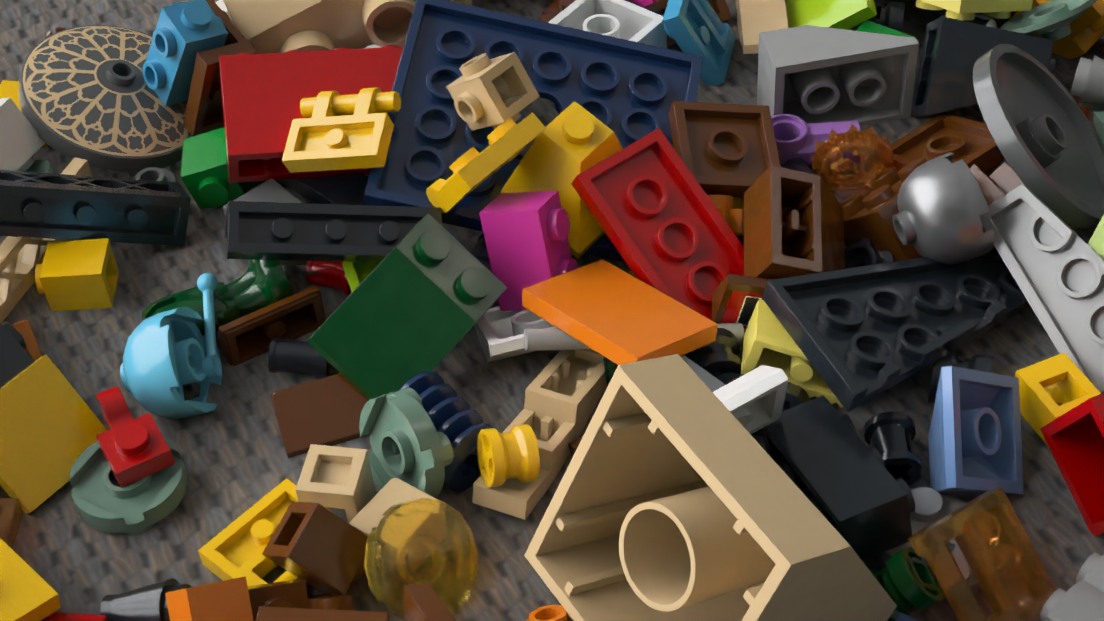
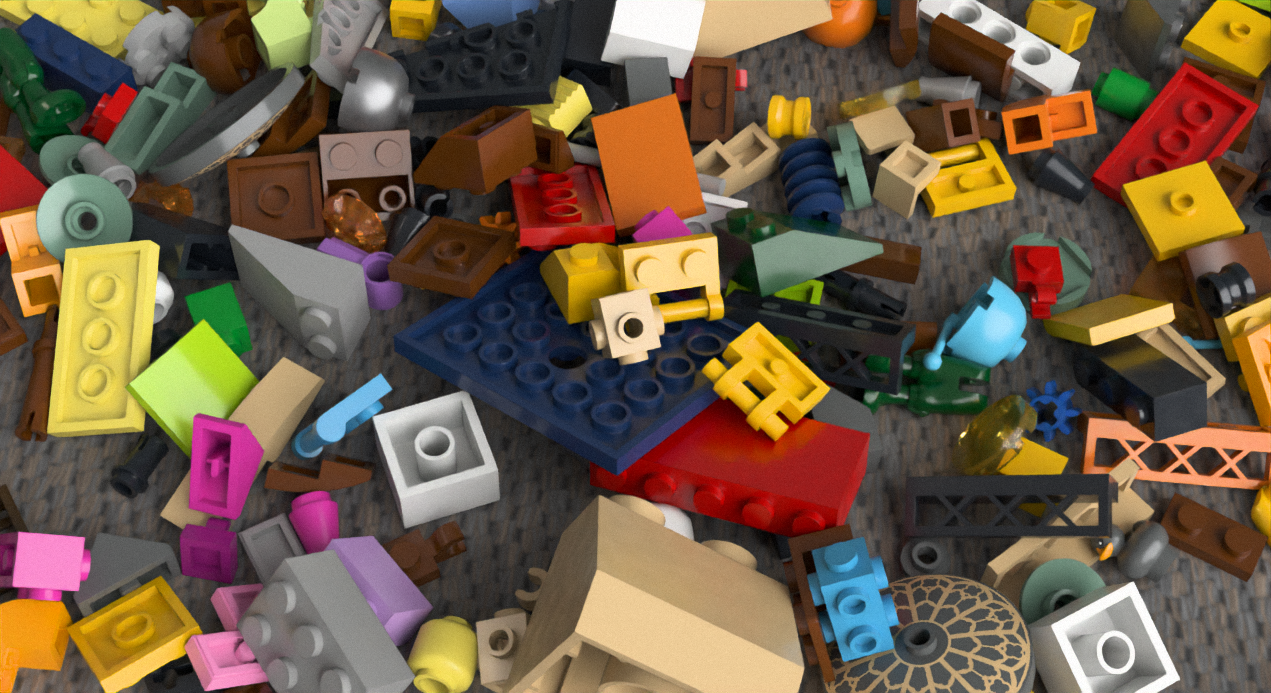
camera: 155 degrees left, 10 degrees up
(74, 333) = (1062, 413): none -> blue gear
(120, 266) = (994, 437): none -> clear yellow tile
(206, 170) = (874, 518): green brick -> none

